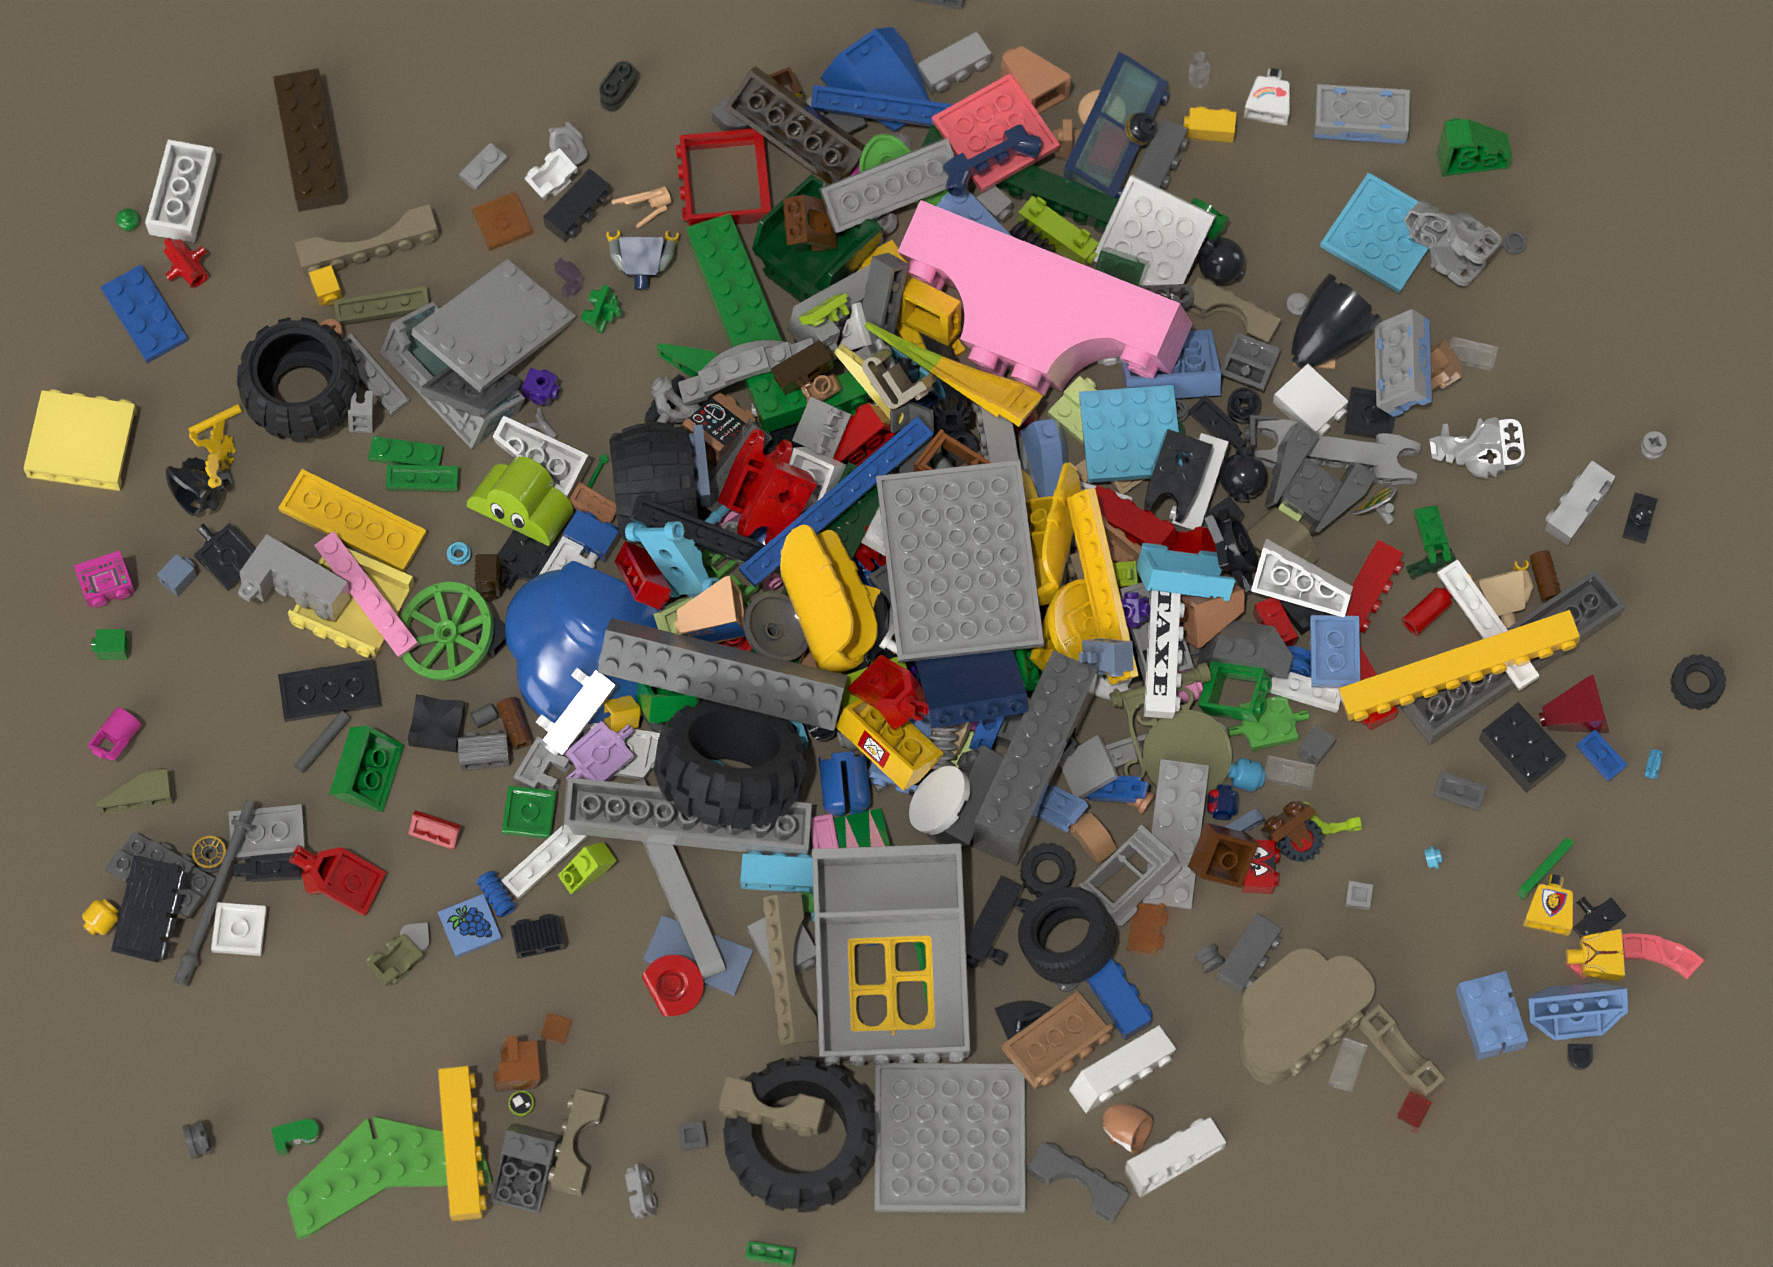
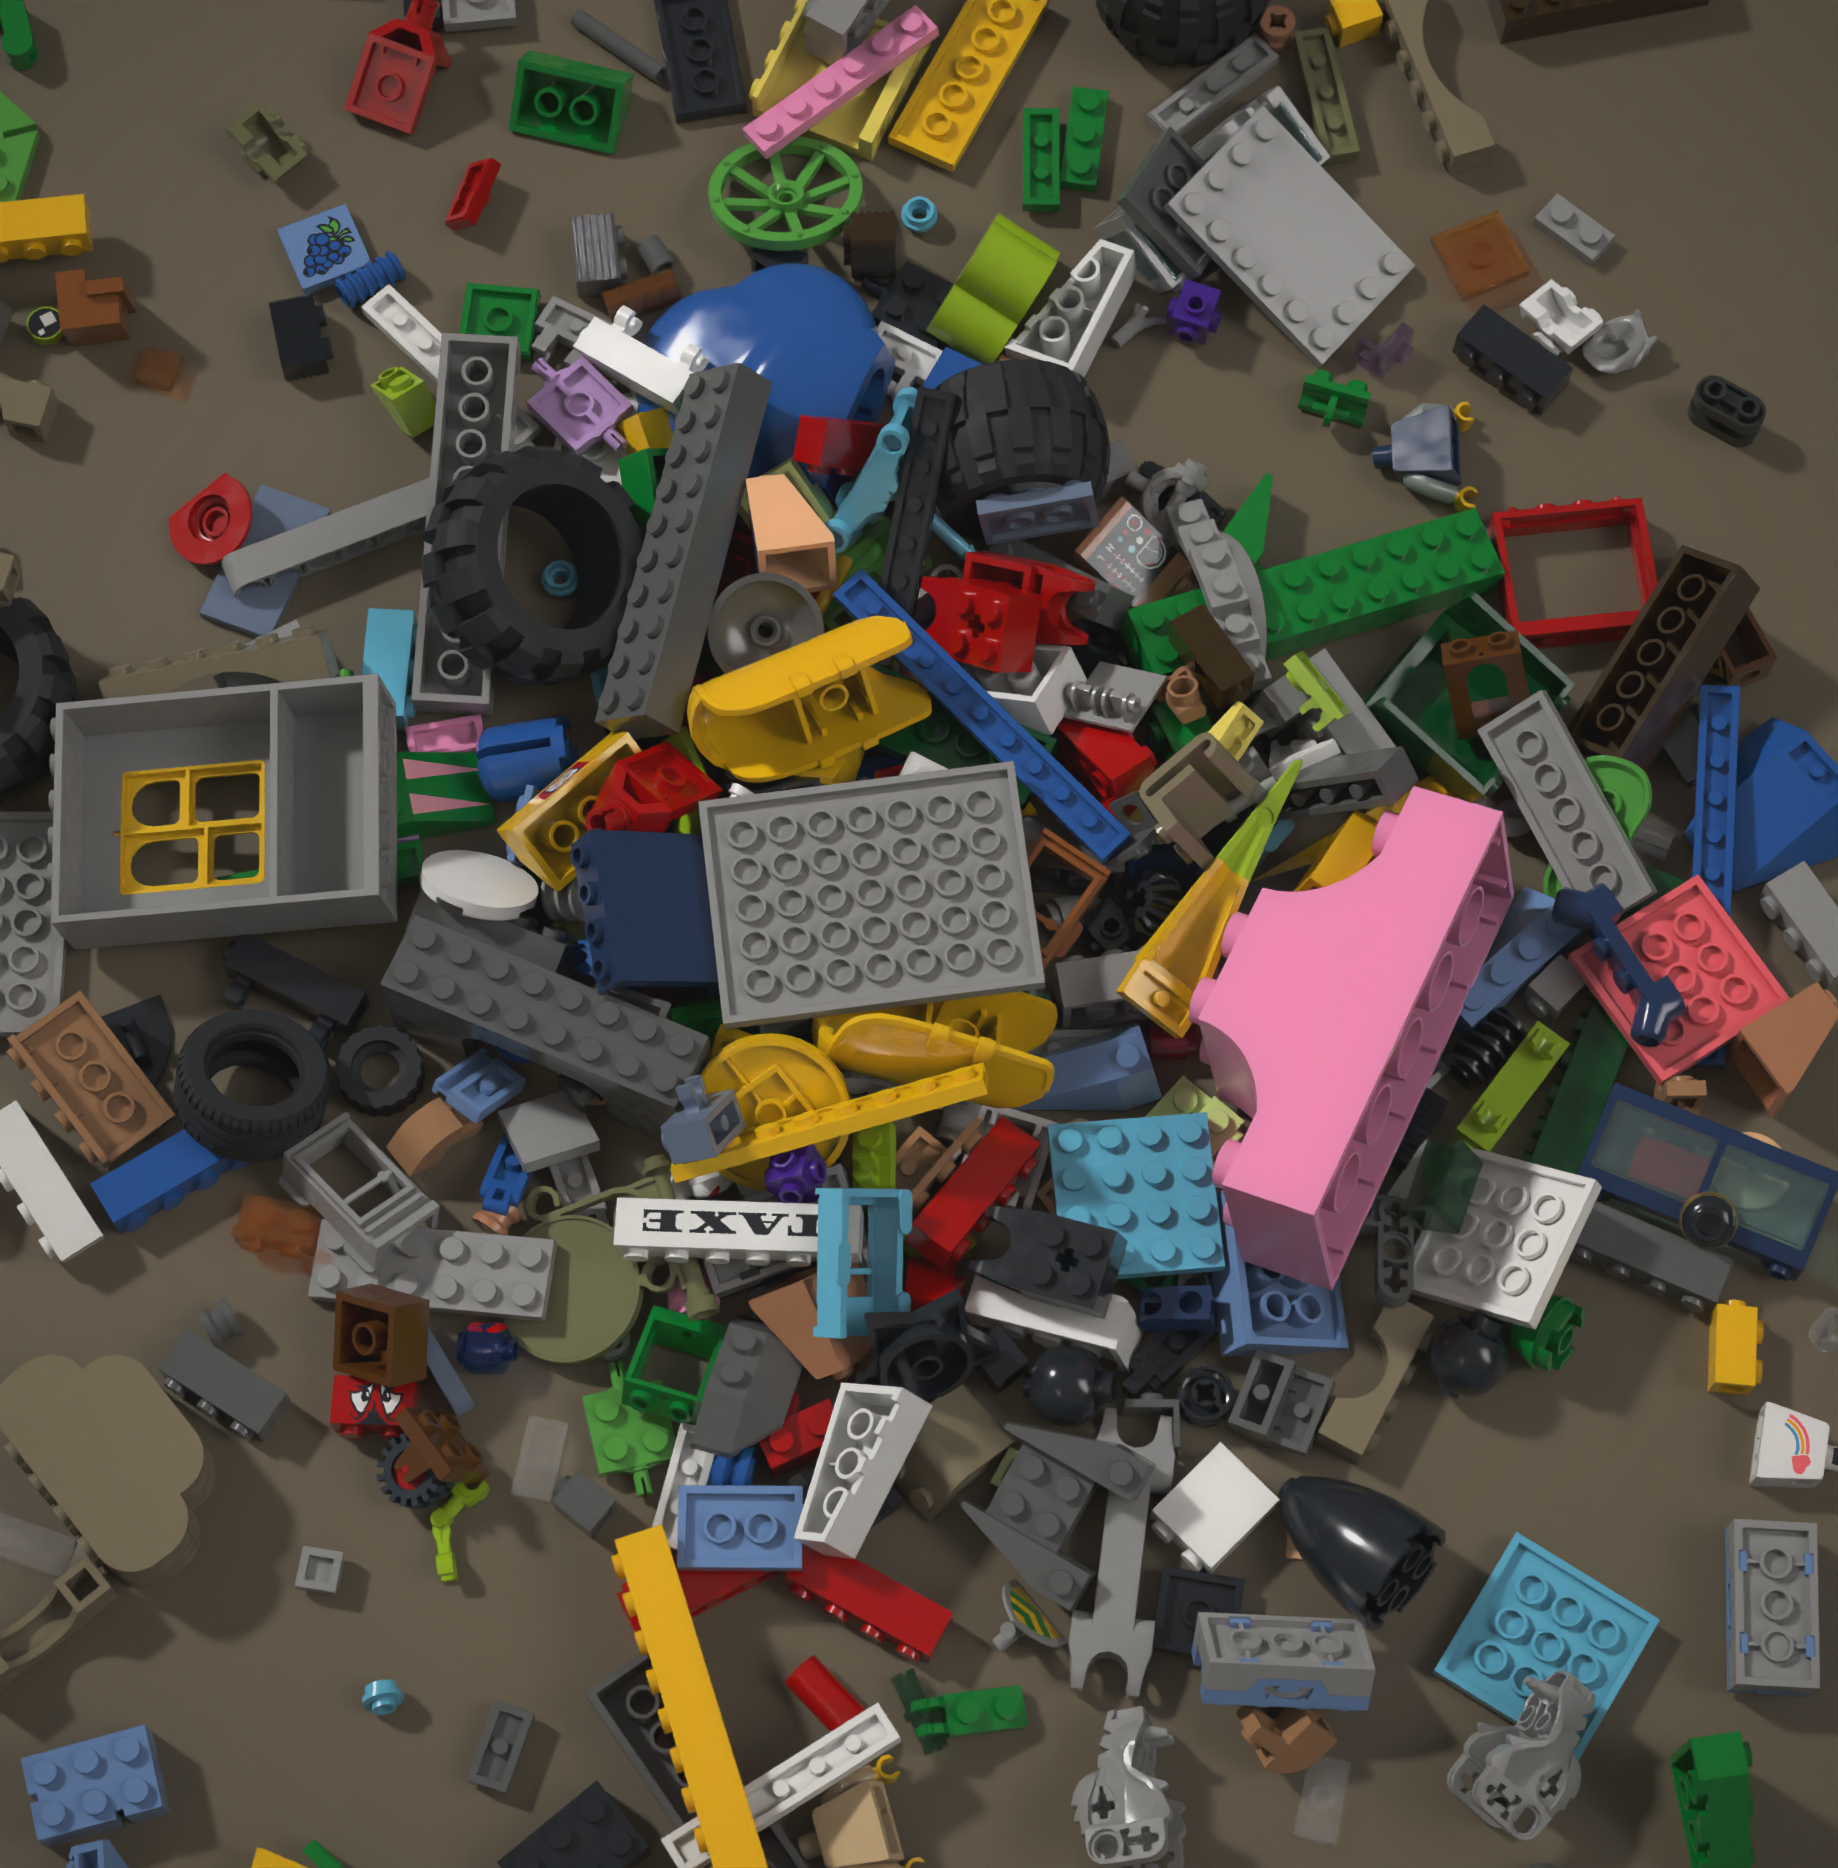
camera: 90 degrees right, 0 degrees up
(361, 415) = (1138, 71): light grey hinge -> none
(417, 934) = (311, 180): light grey tile -> none
(436, 723) = (641, 189): black brick -> none
(657, 198) = (1535, 475): light nougat plant -> none
(1196, 413) = (1177, 1309): none -> dark blue leg
(1247, 774) = (535, 1387): dark azure head -> none
(1296, 303) = (1403, 1488): light grey plate -> none

